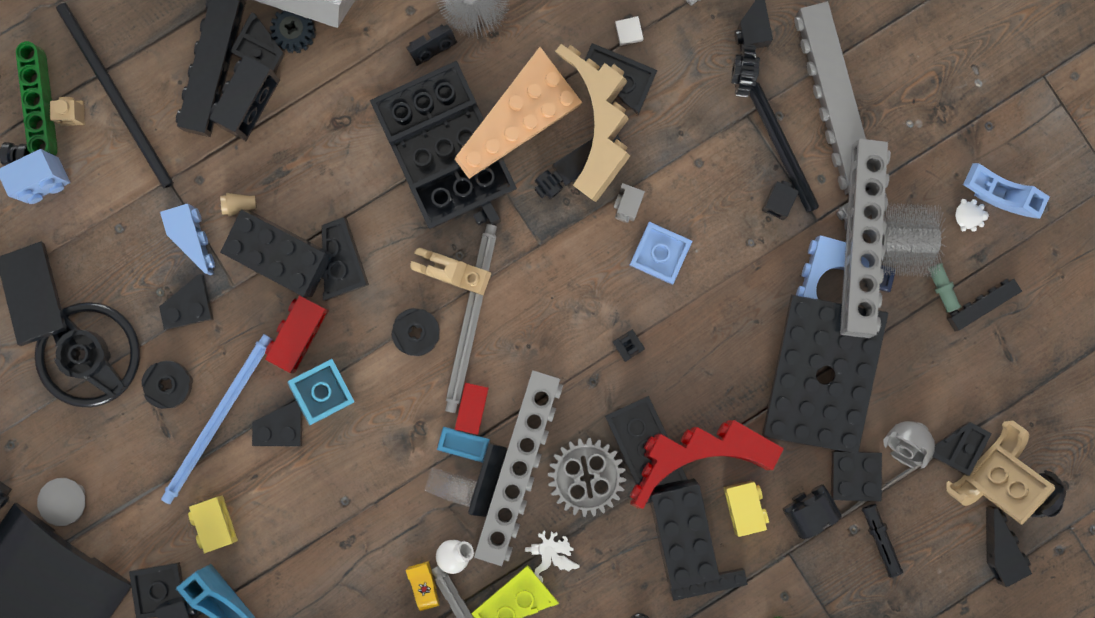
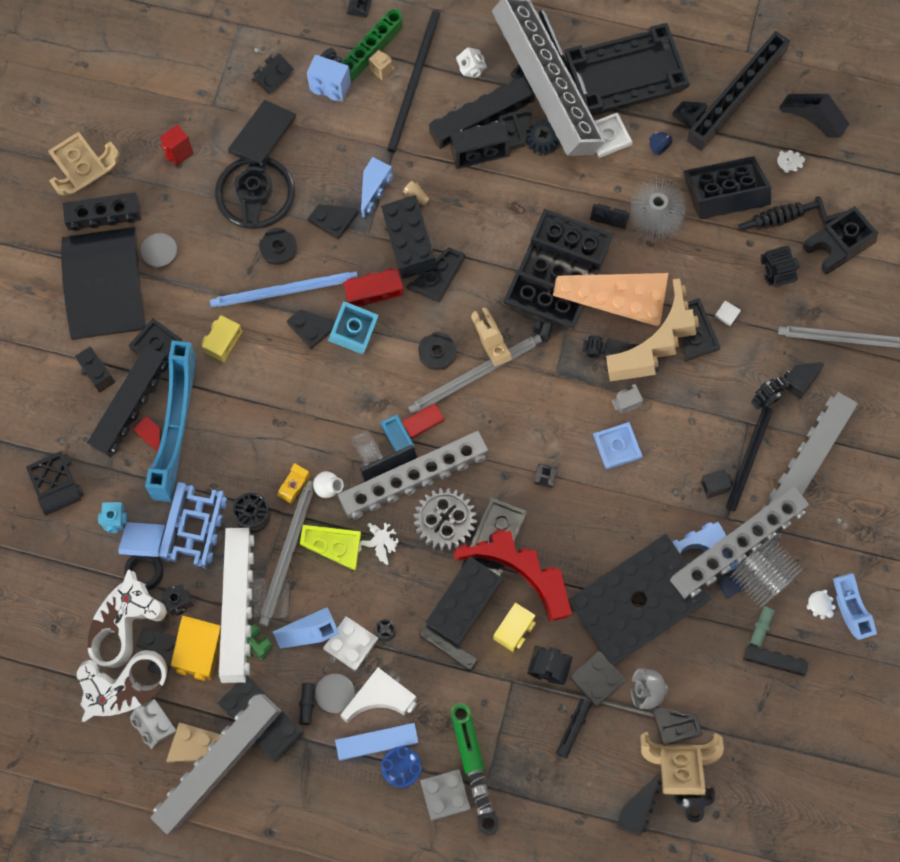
camera: 50 degrees right, 15 degrees down
(149, 23) = (471, 62): none -> white brick

